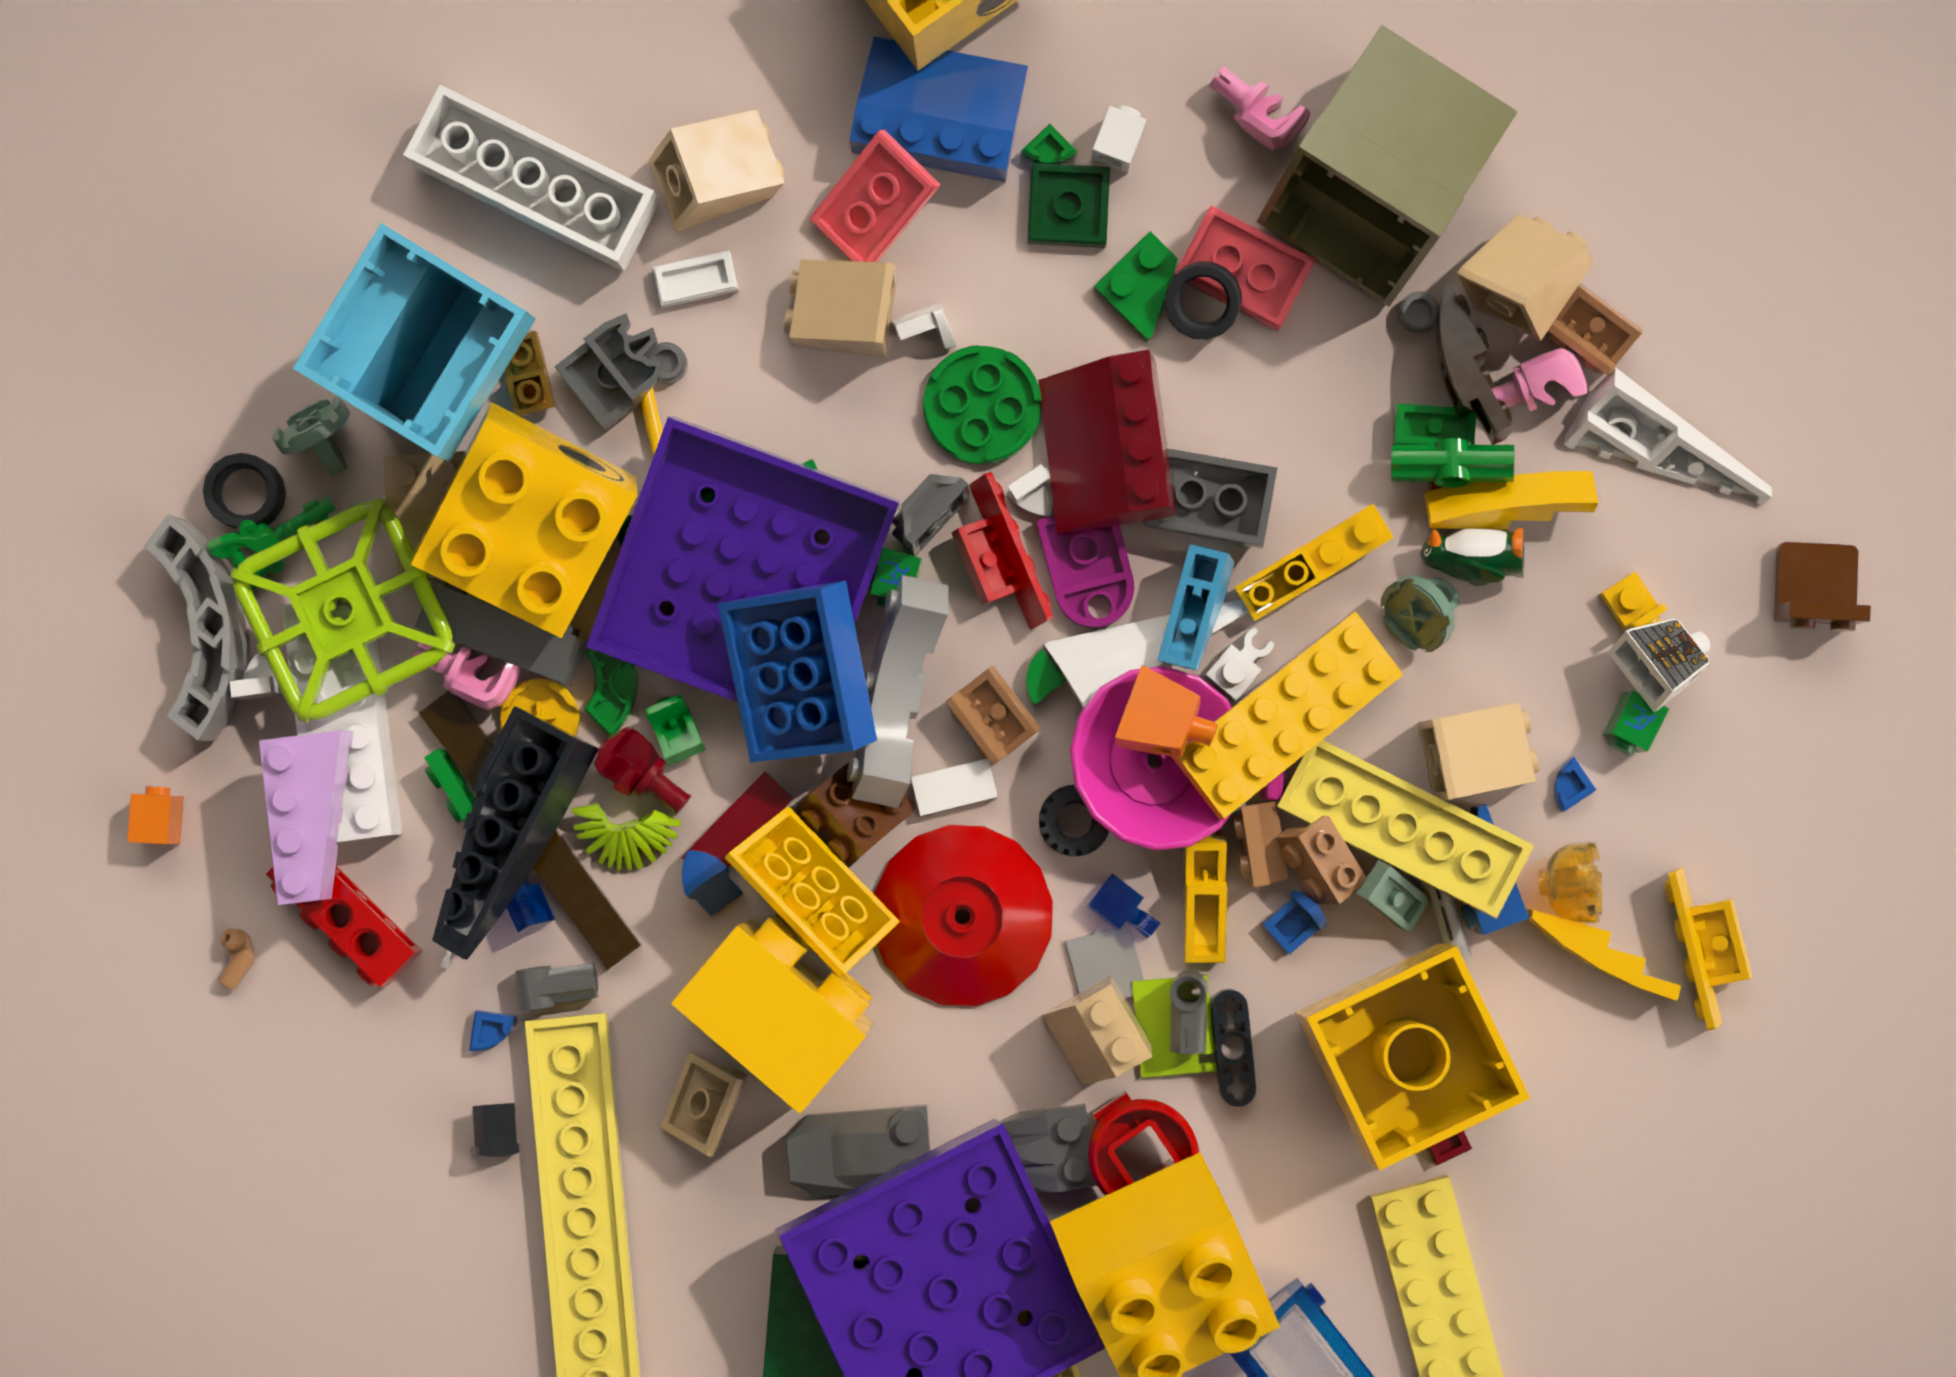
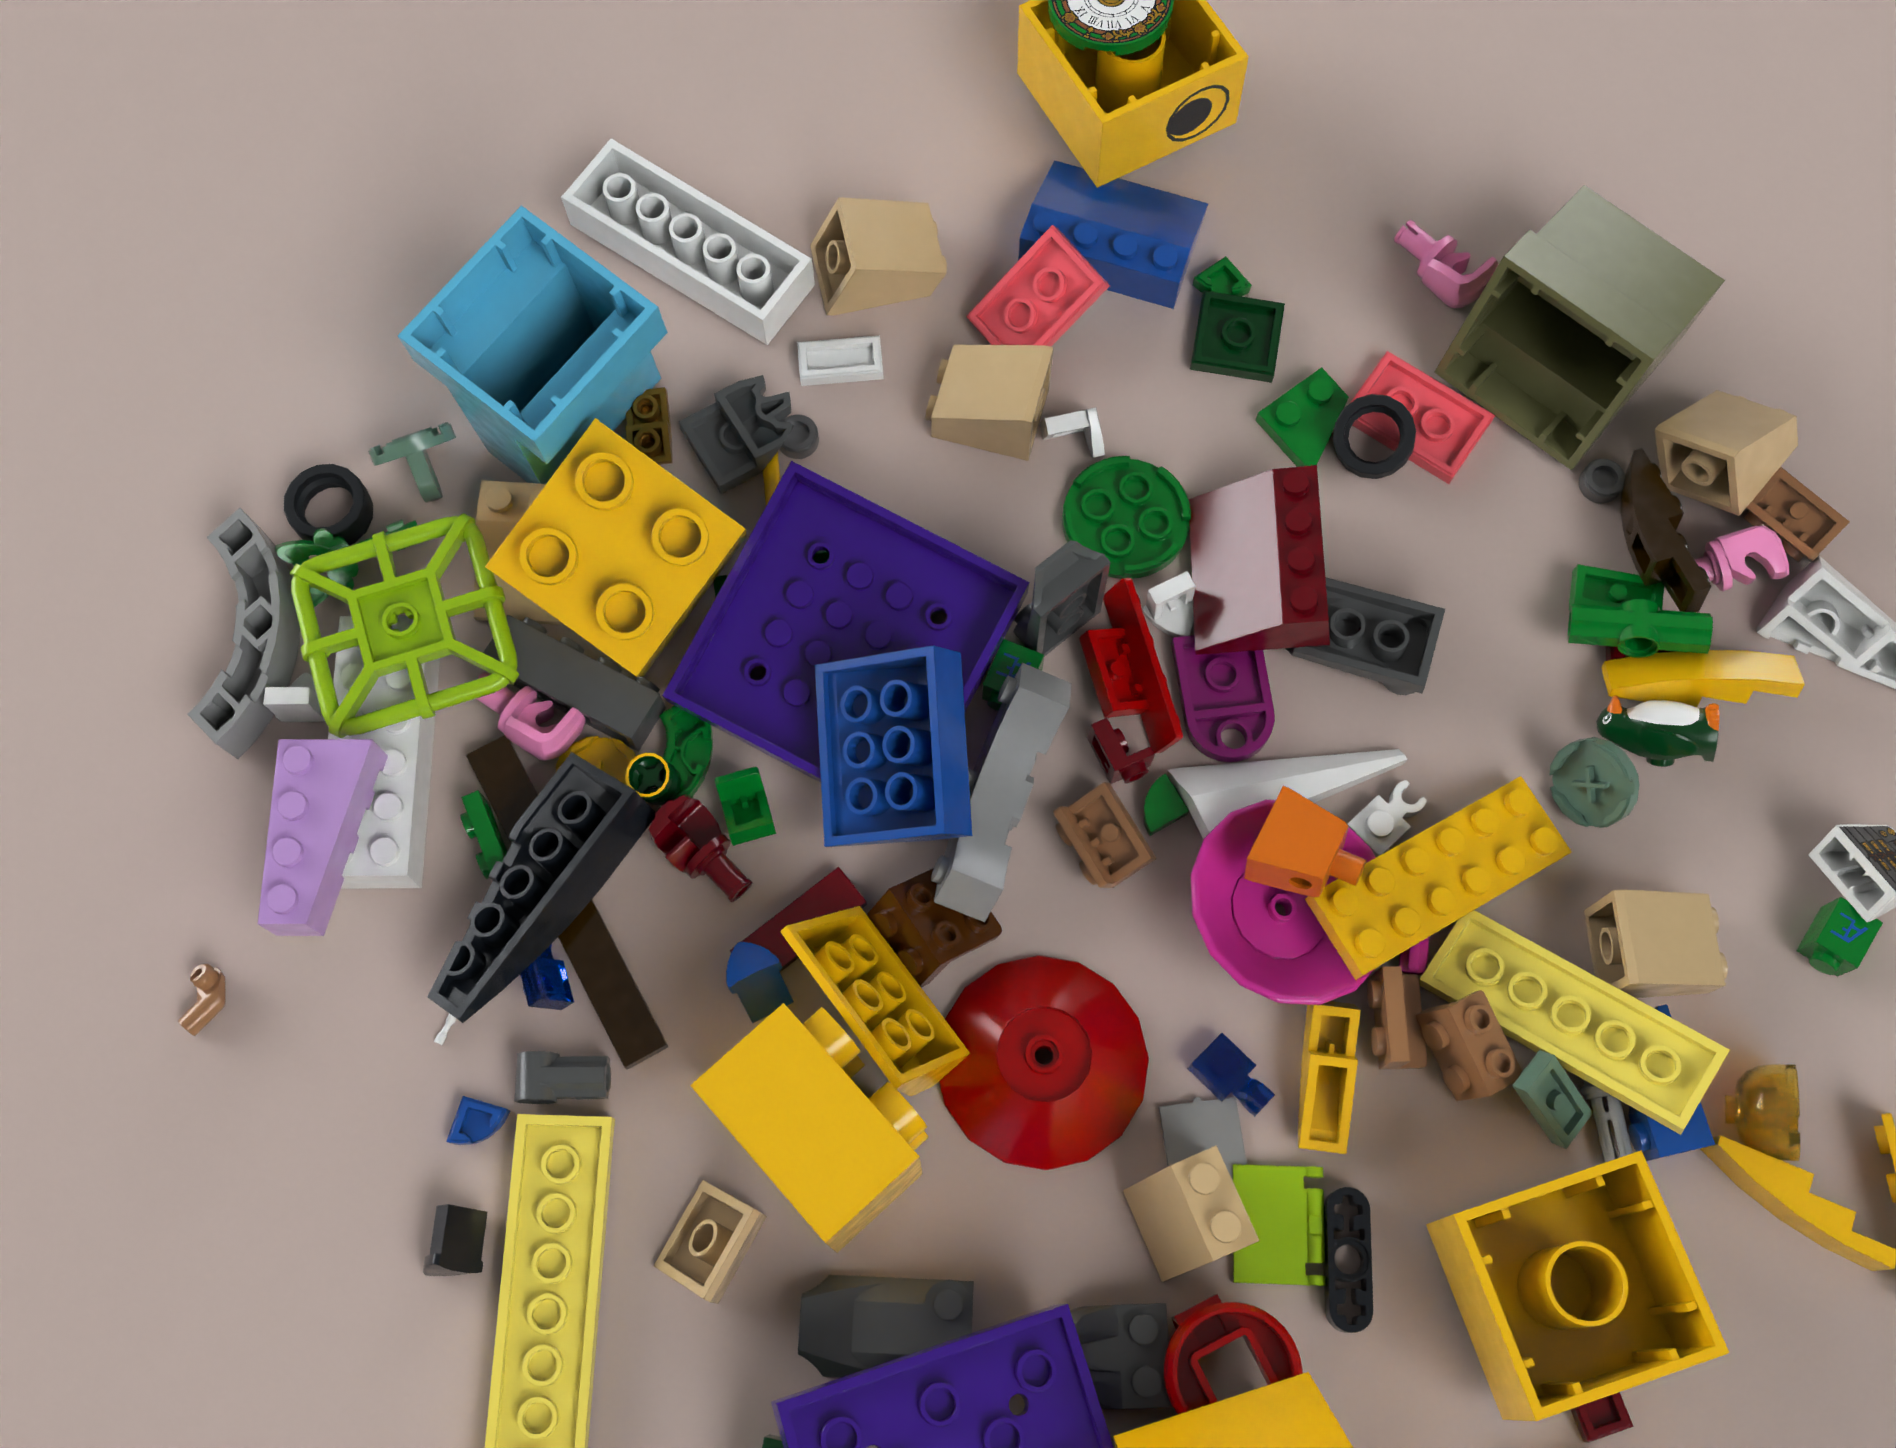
camera: 10 degrees right, 15 degrees down
(155, 817) = (151, 829): orange brick -> none
(395, 947) = (385, 1011): red brick -> none
(583, 721) = (646, 773): none -> dark green wheel
(625, 838) = (671, 923): lime hair -> none
(954, 787) = (1050, 913): white tile -> none
(991, 633) = (1111, 752): none -> dark red bracket
(1054, 836) = (1159, 982): black tyre -> none
(1119, 138) = (1296, 276): white brick -> none
(1188, 1016) = (1299, 1212): dark grey piece -> none
(1196, 606) = (1345, 740): dark azure slope -> none
(1295, 921) = (1433, 1117): blue tile -> none
(1314, 562) = (1479, 716): yellow slope -> none
(1571, 785) = (1761, 1002): blue tile -> none
(1632, 603) = (1832, 804): yellow bracket -> none

